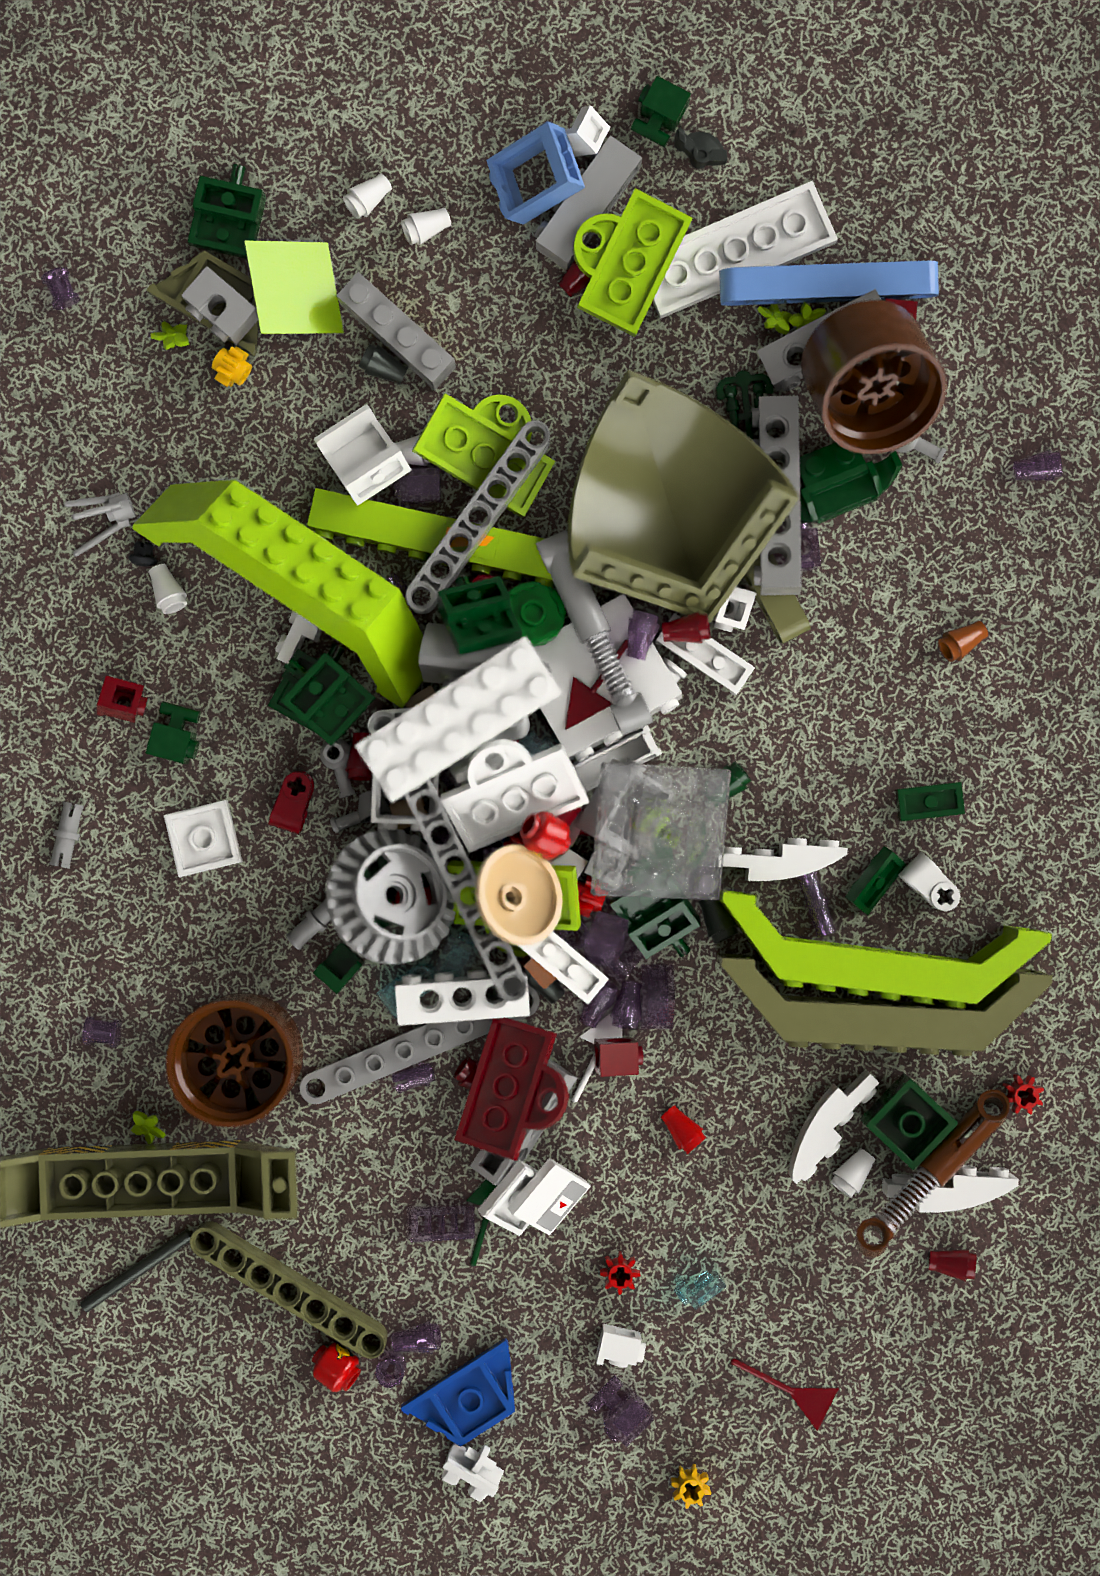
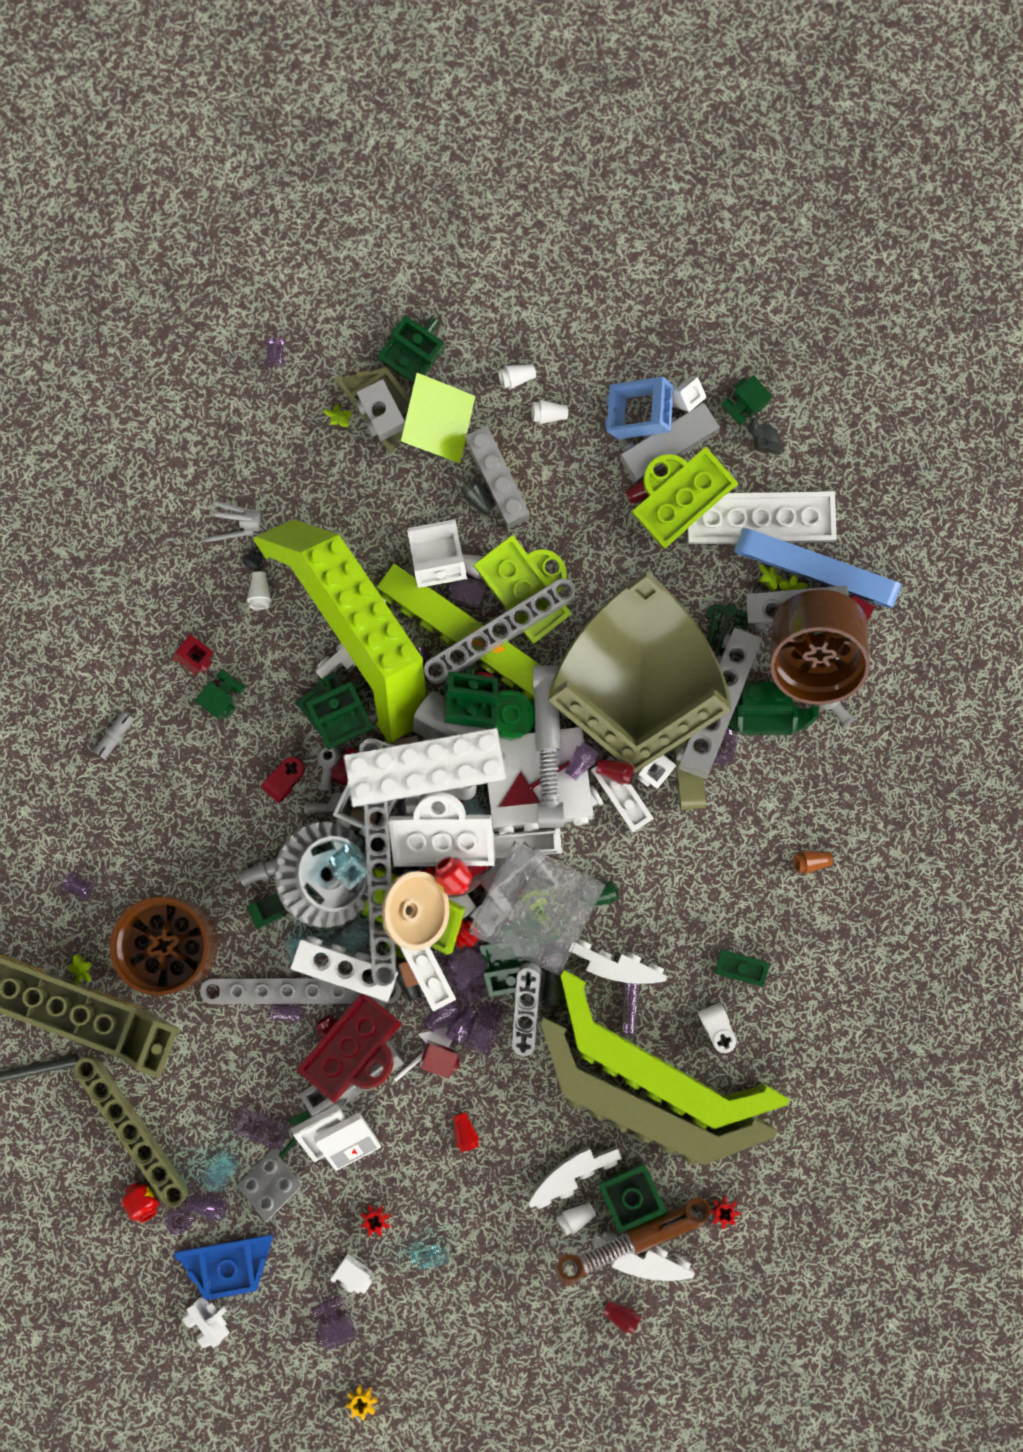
camera: 30 degrees right, 5 degrees down
(203, 838) = (209, 778): white tile -> none
(231, 366) = (371, 454): yellow gear -> none
(415, 1292) = (220, 1171): none -> clear light blue brick
(416, 876) = (348, 866): none -> clear light blue brick
(479, 1284) = (269, 1185): none -> light grey hinge
(695, 956) = (526, 1009): none -> light grey beam
(812, 1401) = (477, 1377): dark red piece -> none
(875, 880) = (679, 1009): dark green plate -> none
(1039, 467) = (917, 759): clear purple cone -> none

